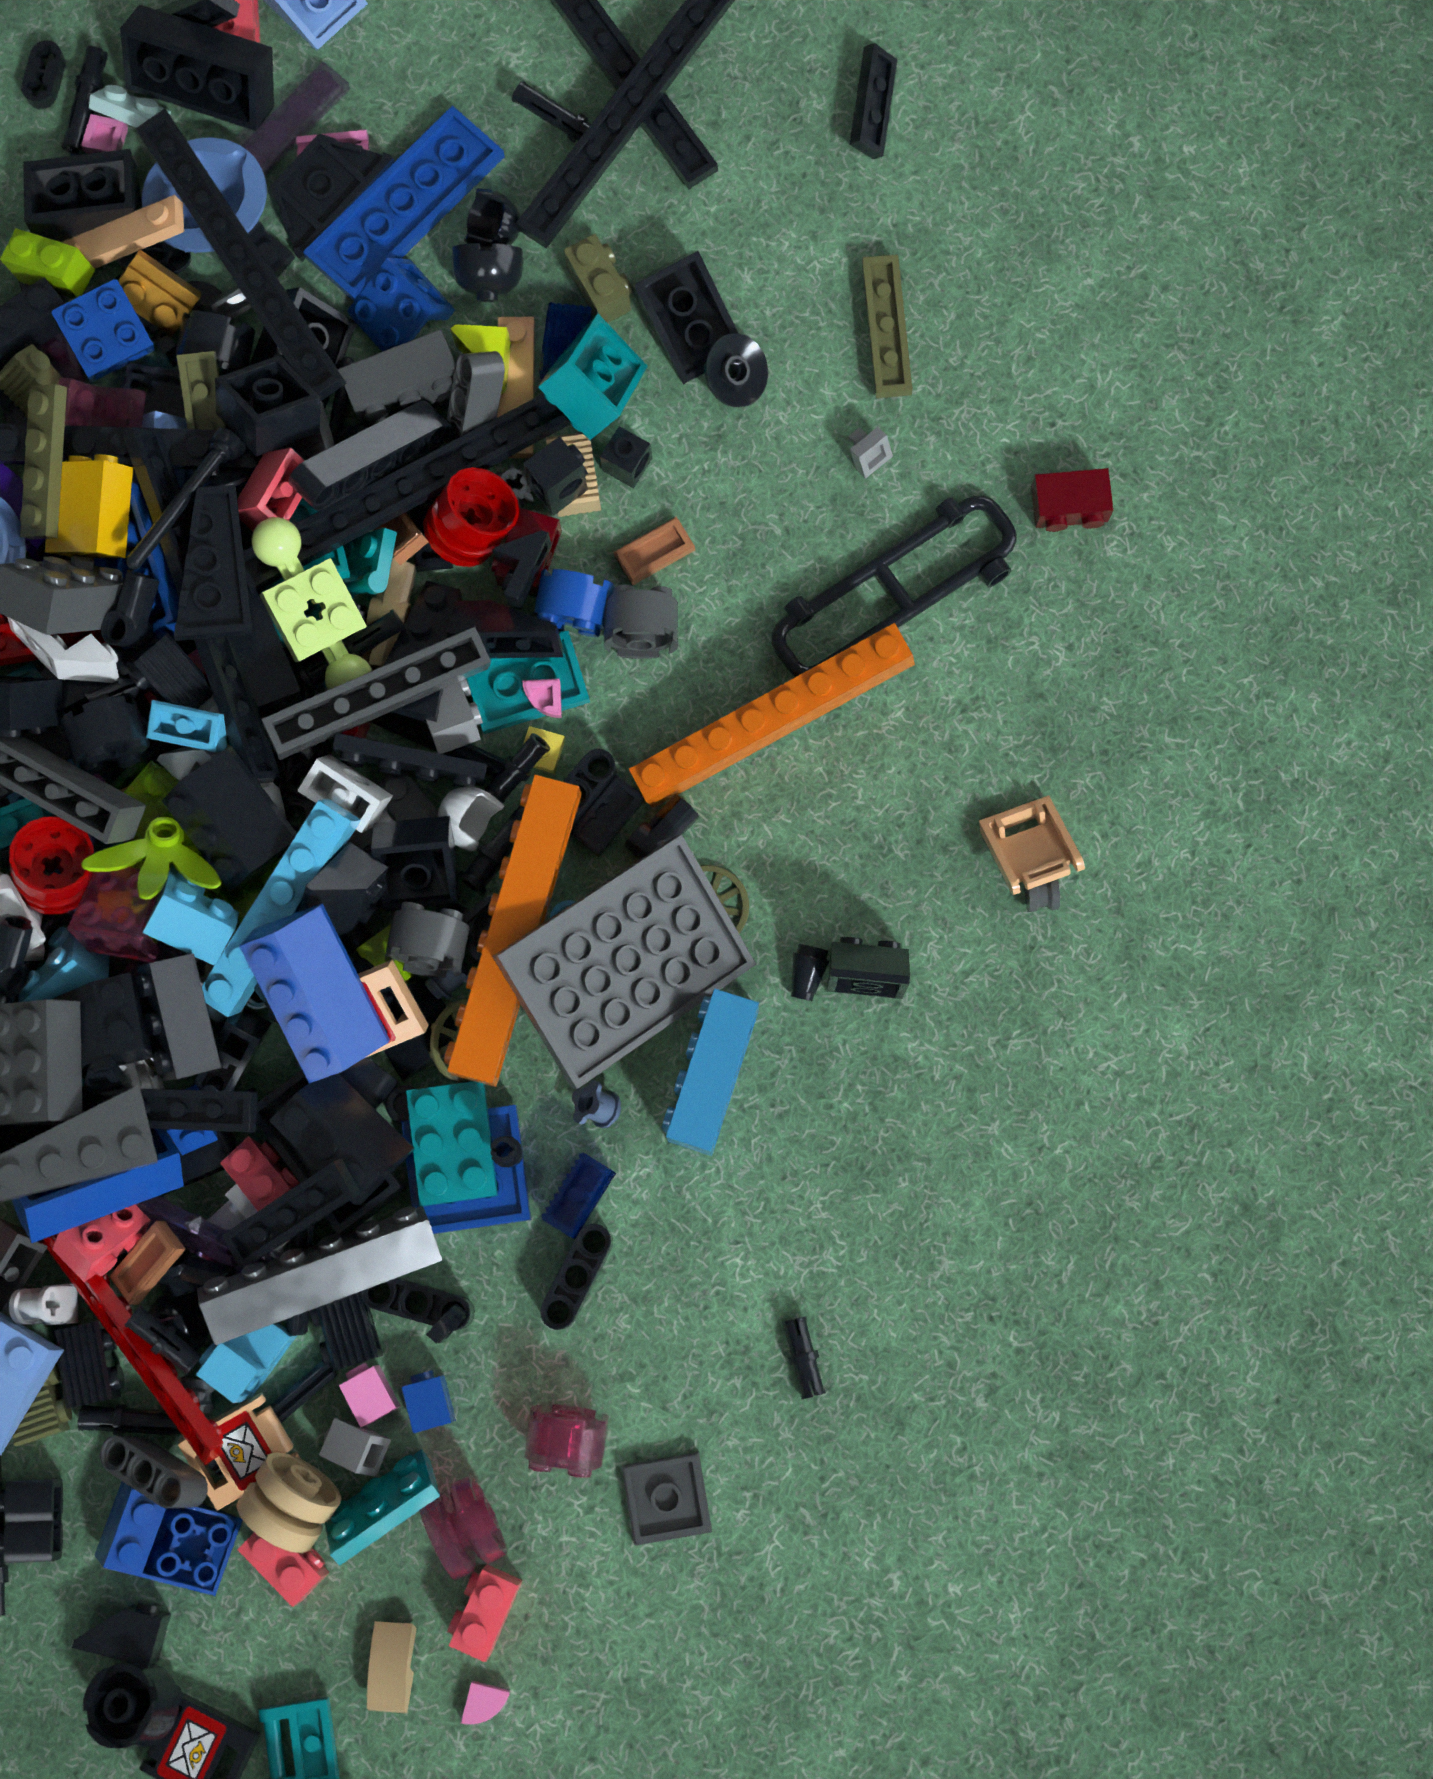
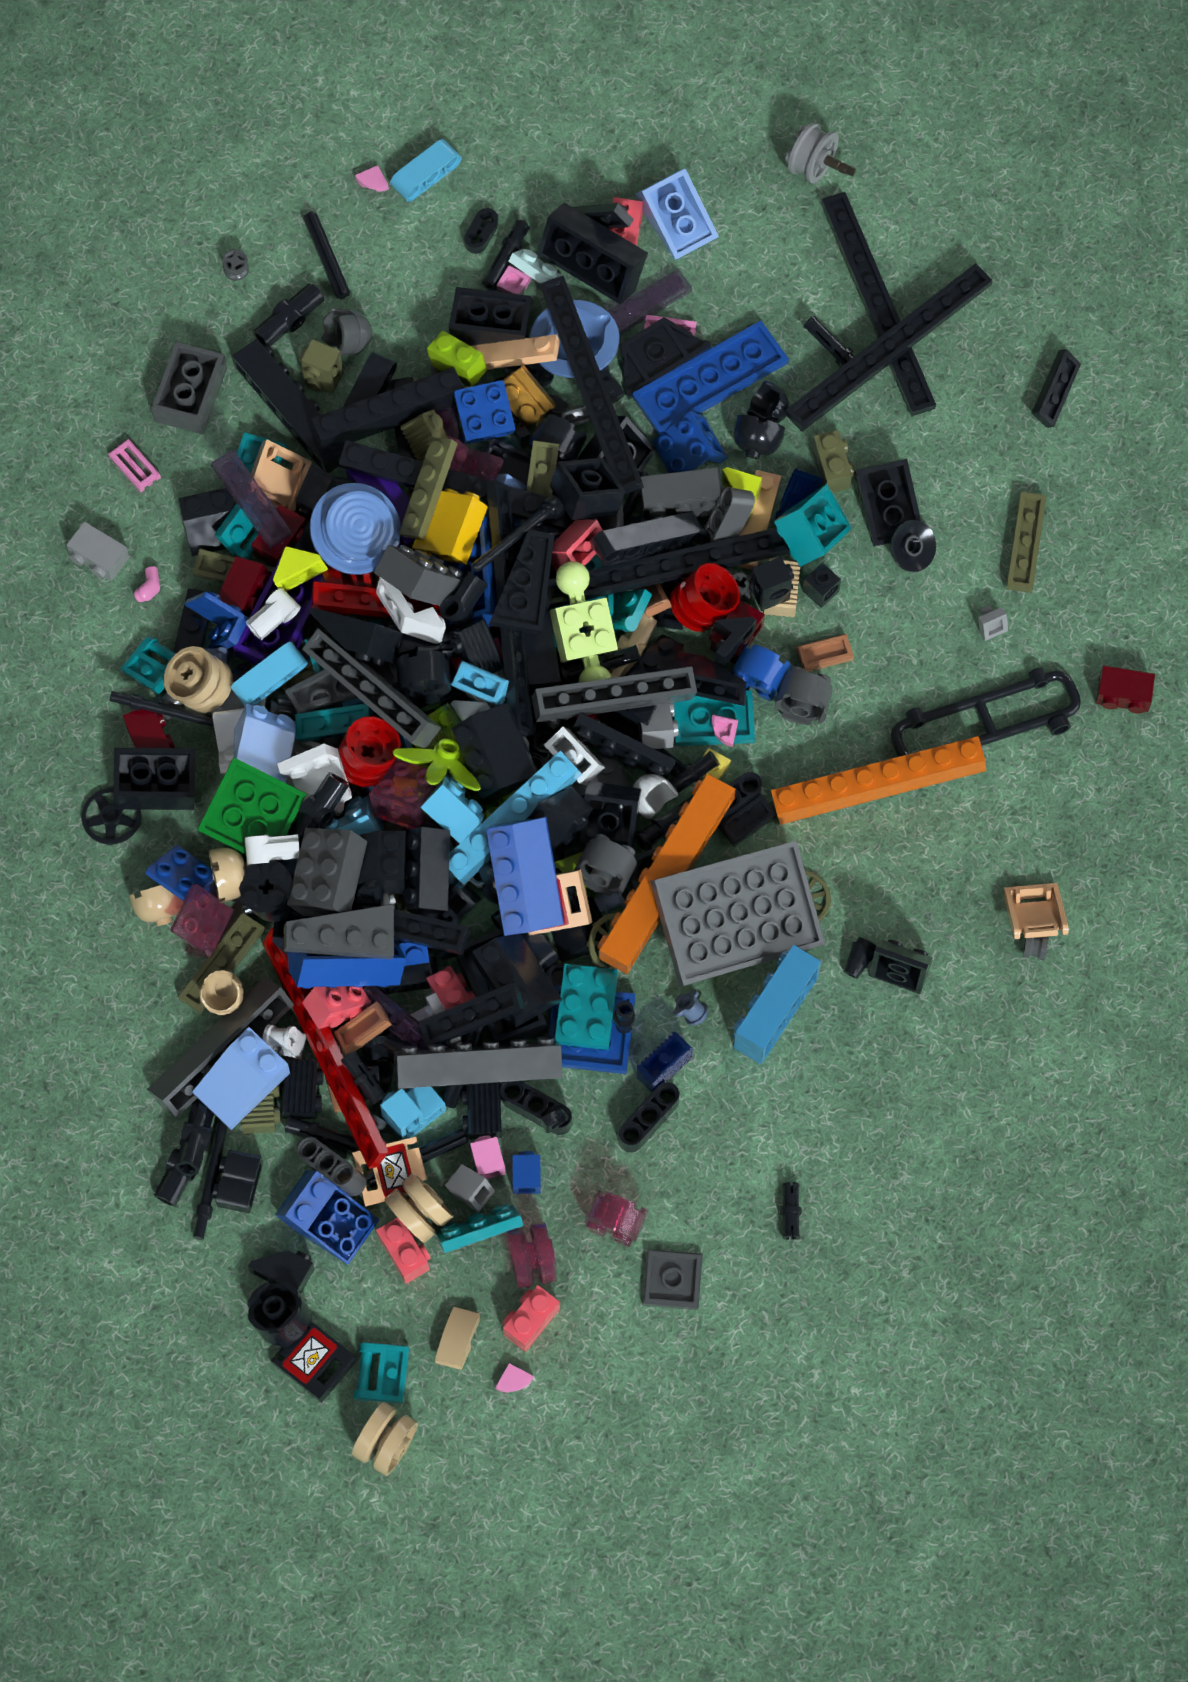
camera: 10 degrees right, 10 degrees down
(670, 821) = (788, 833): black piece -> none

